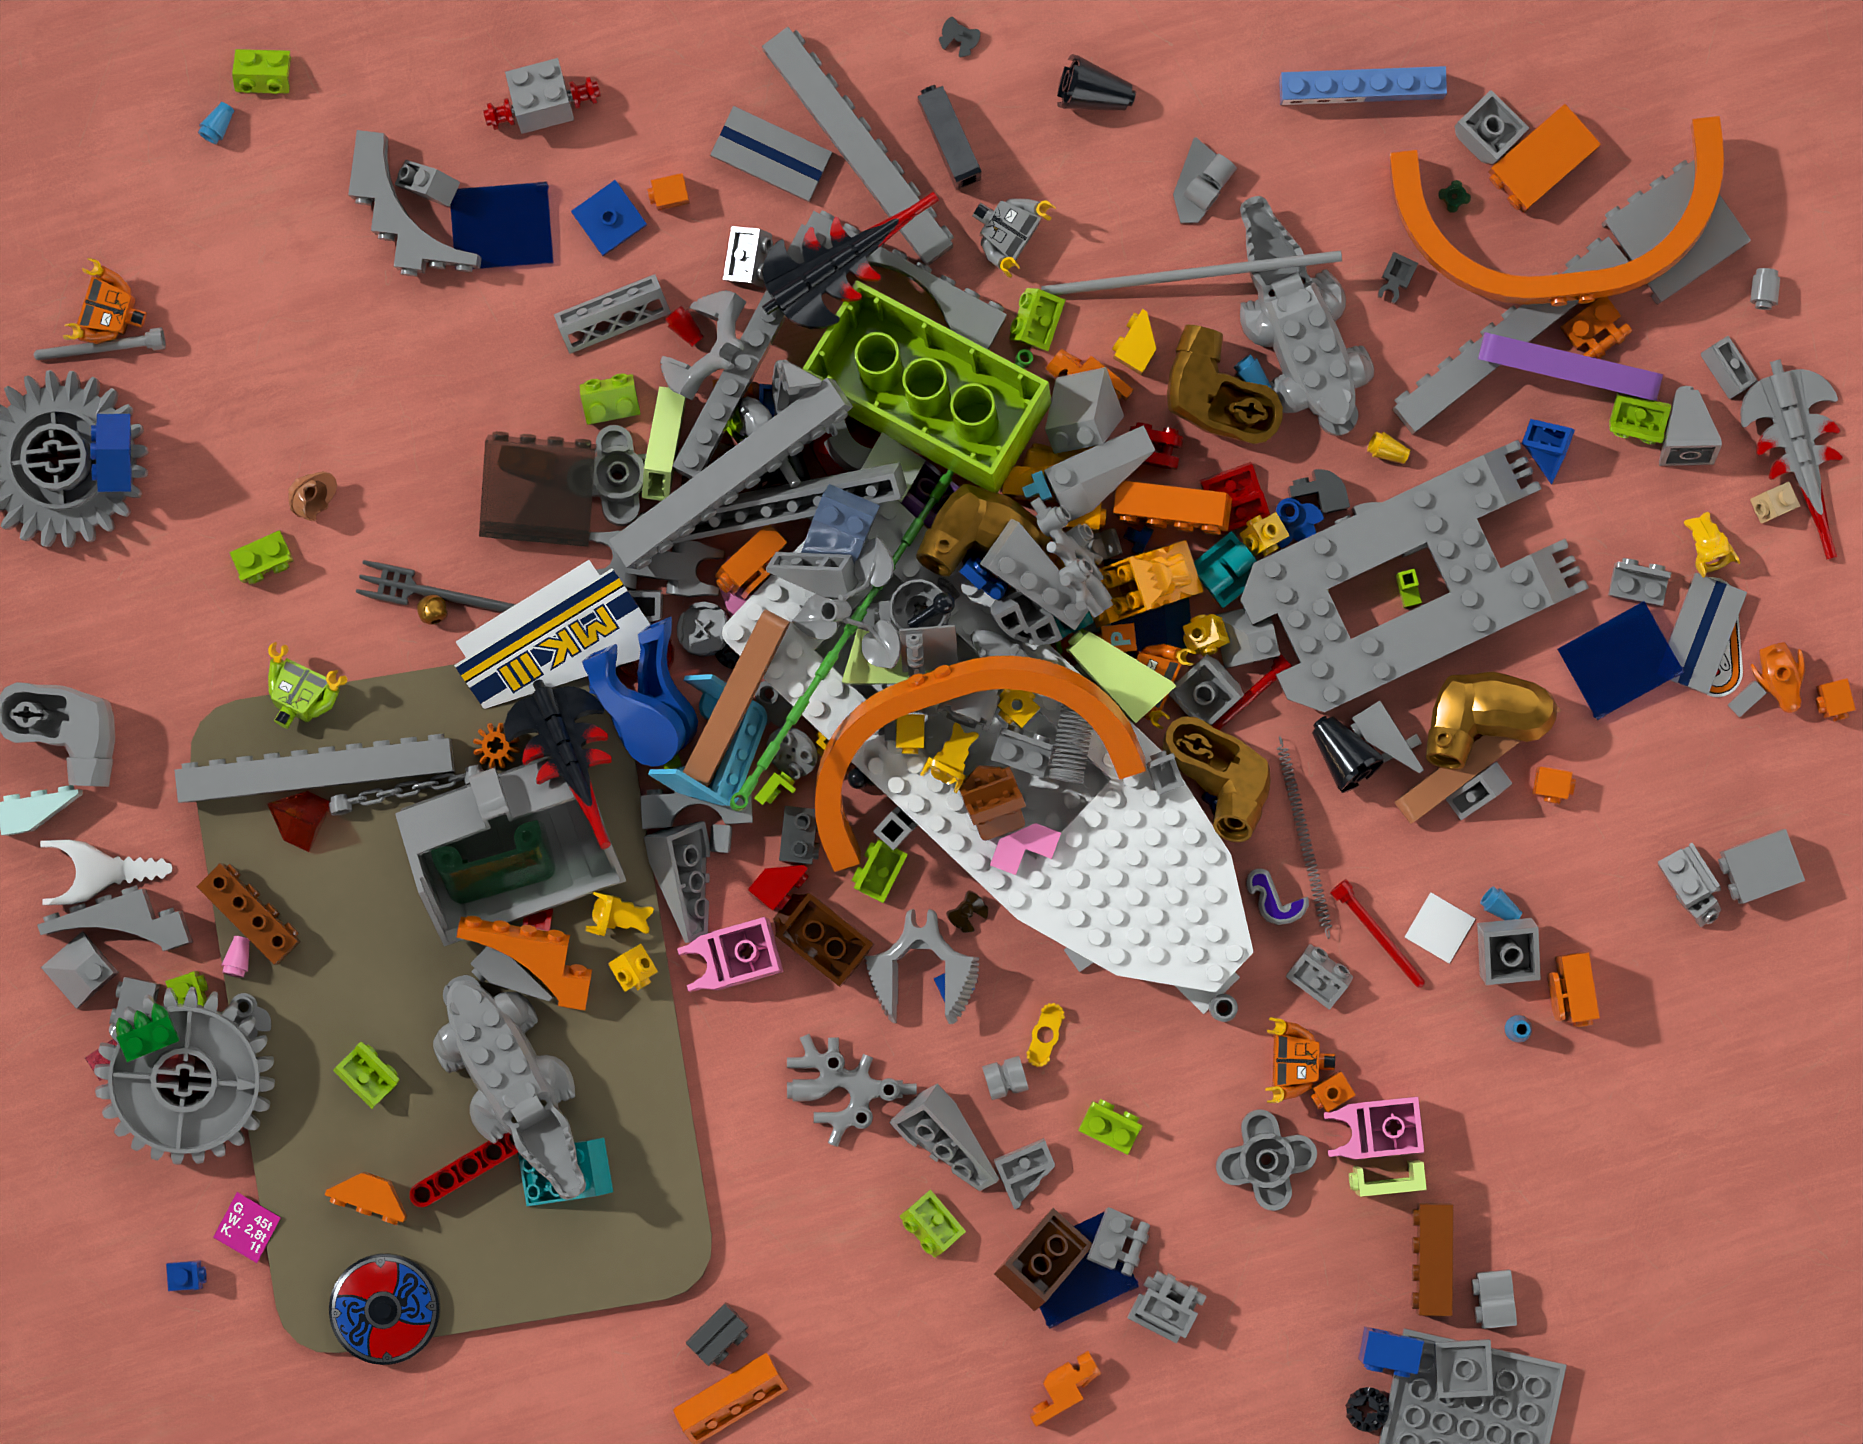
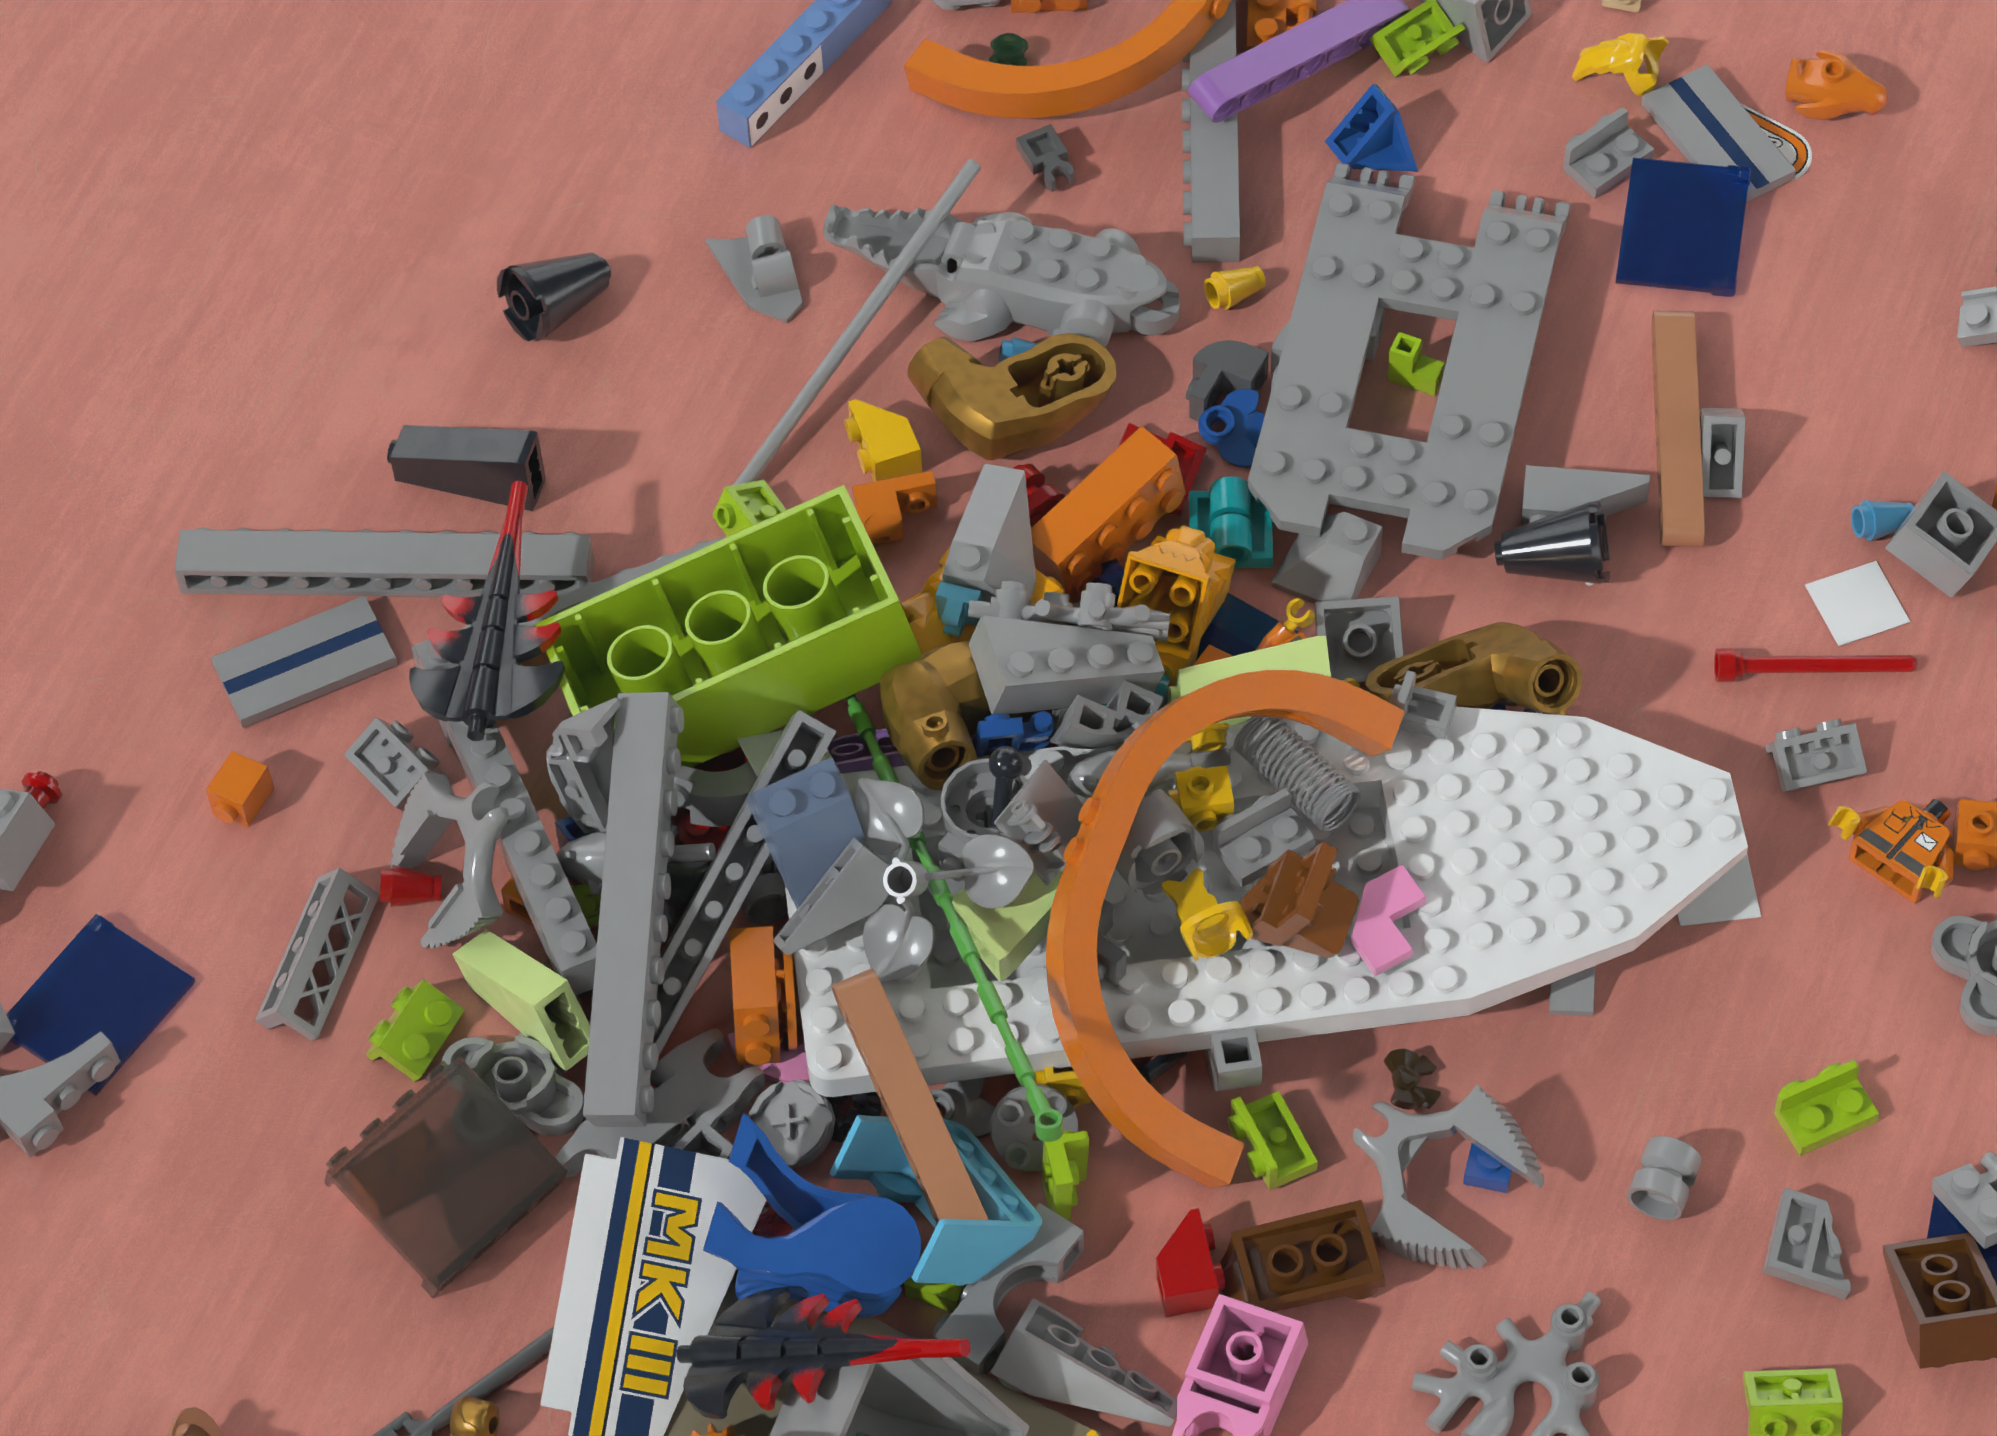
camera: 50 degrees left, 30 degrees down
(609, 218) = (204, 880): blue plate -> none
(720, 838) = (1072, 1293): light grey slope -> none
(799, 836) = (1145, 1196): dark grey brick -> none
(910, 733) = (1134, 934): yellow brick -> none
(941, 1129) = (1676, 1304): light grey wedge -> none
(968, 37) = (353, 390): dark grey piece -> none
(1009, 229) = (629, 474): light grey torso -> none
(1038, 1051) = (1627, 1083): yellow piece -> none
(1082, 411) = (910, 519): light grey slope -> none
(1205, 634) = (1284, 583): yellow brick -> none
(1231, 1011) = (1771, 876): light grey brick -> none
(1264, 534) = (1221, 456): yellow brick -> none
(1269, 902) = (1698, 743): animal -> none
(1280, 664) = (1398, 561): red piece -> none
(1301, 839) = (1639, 669): light grey piece -> none
(1489, 706) = (1628, 365): pearl gold piece -> none
(1553, 784) = (1774, 375): orange brick -> none
(1747, 698) = (1832, 139): light grey piece -> none
(1835, 699) = (1904, 58): orange brick -> none

